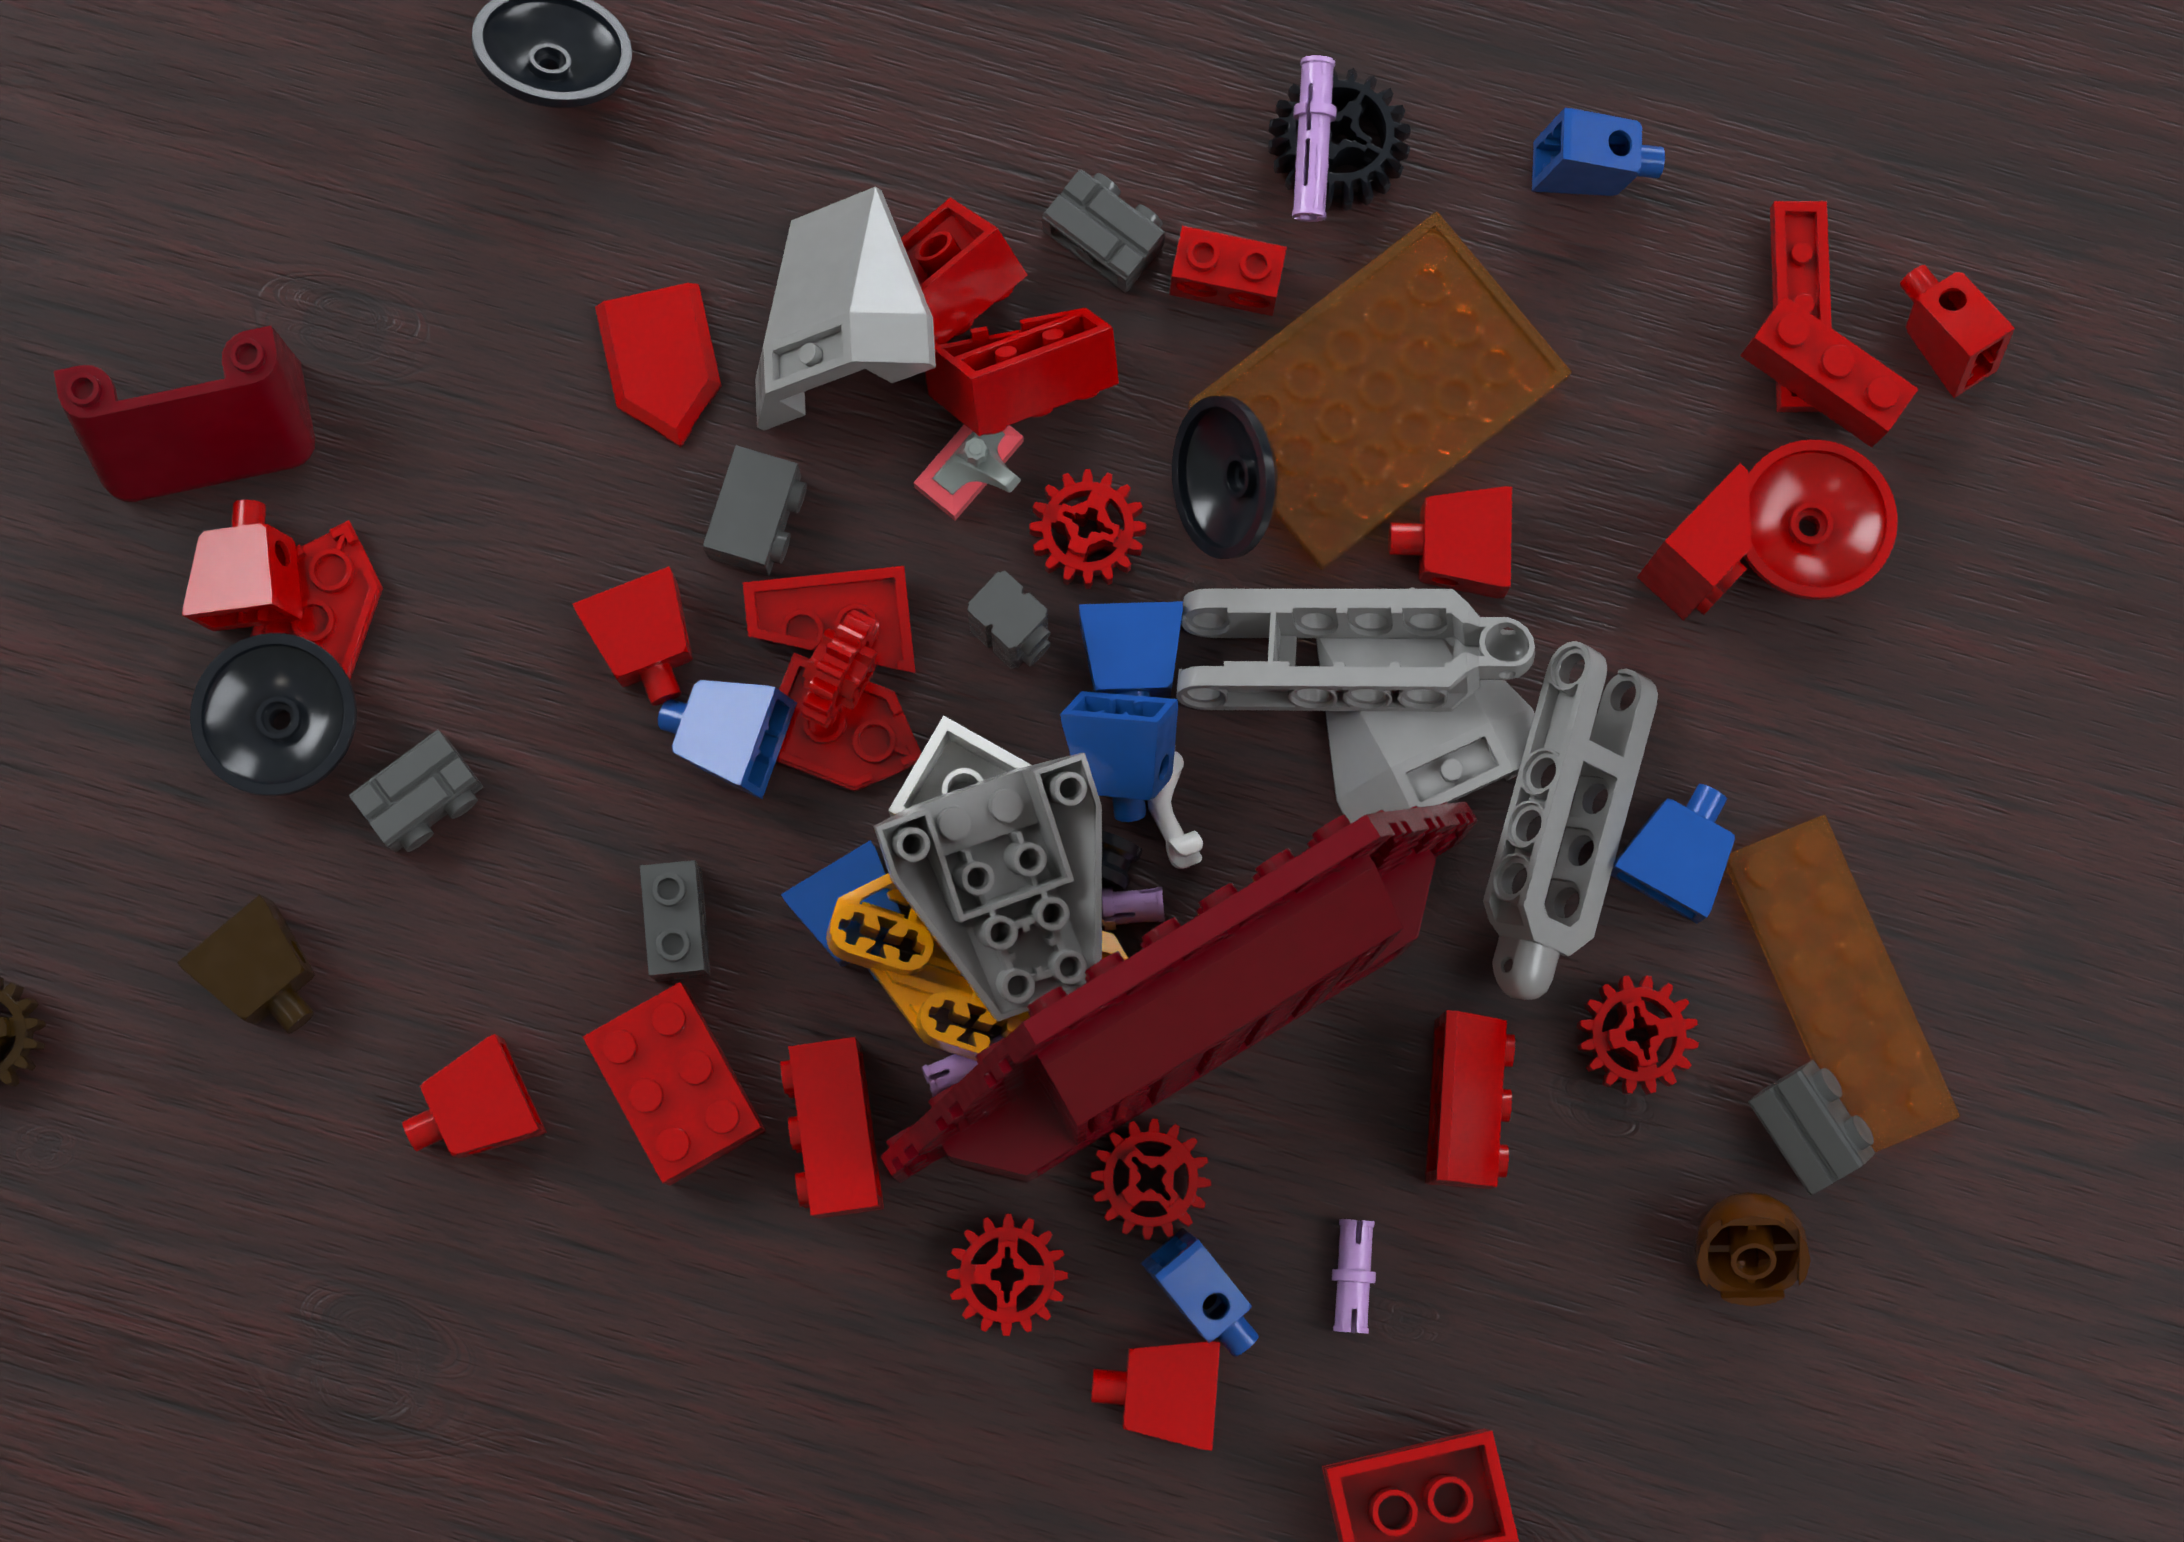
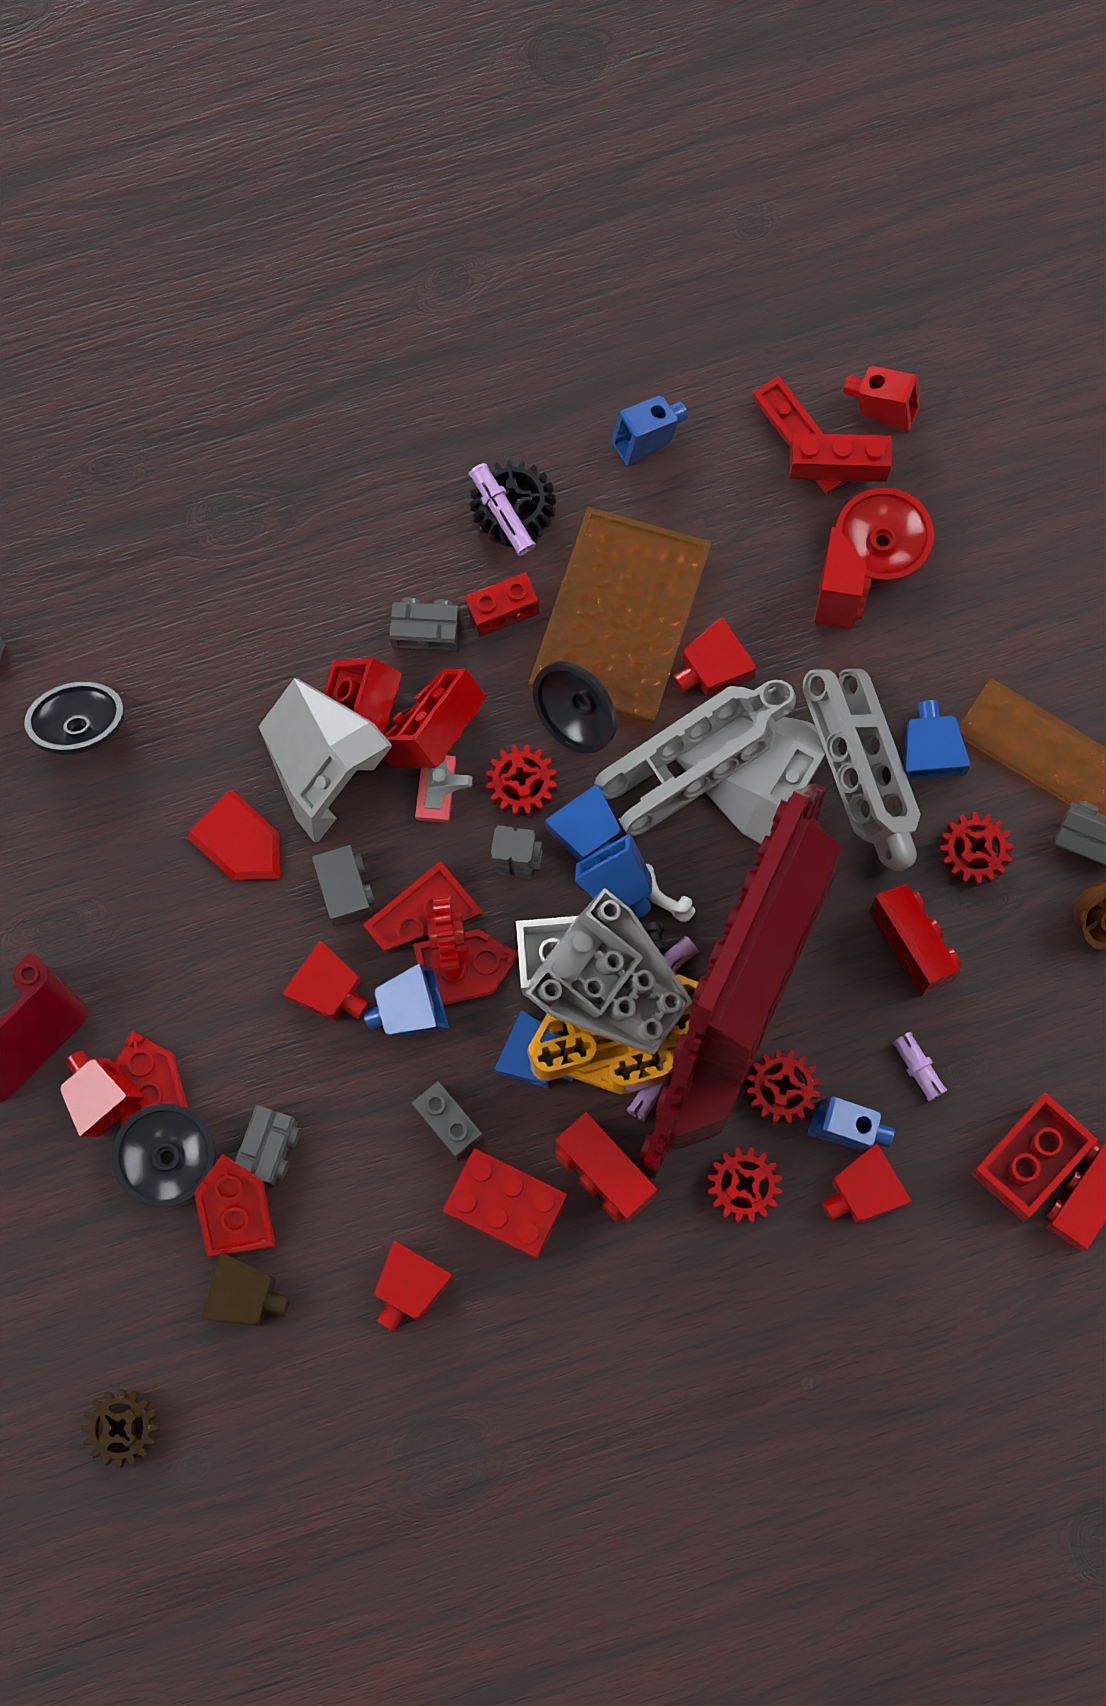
camera: 25 degrees left, 5 degrees down
(315, 849) = (233, 1210): none -> red tile

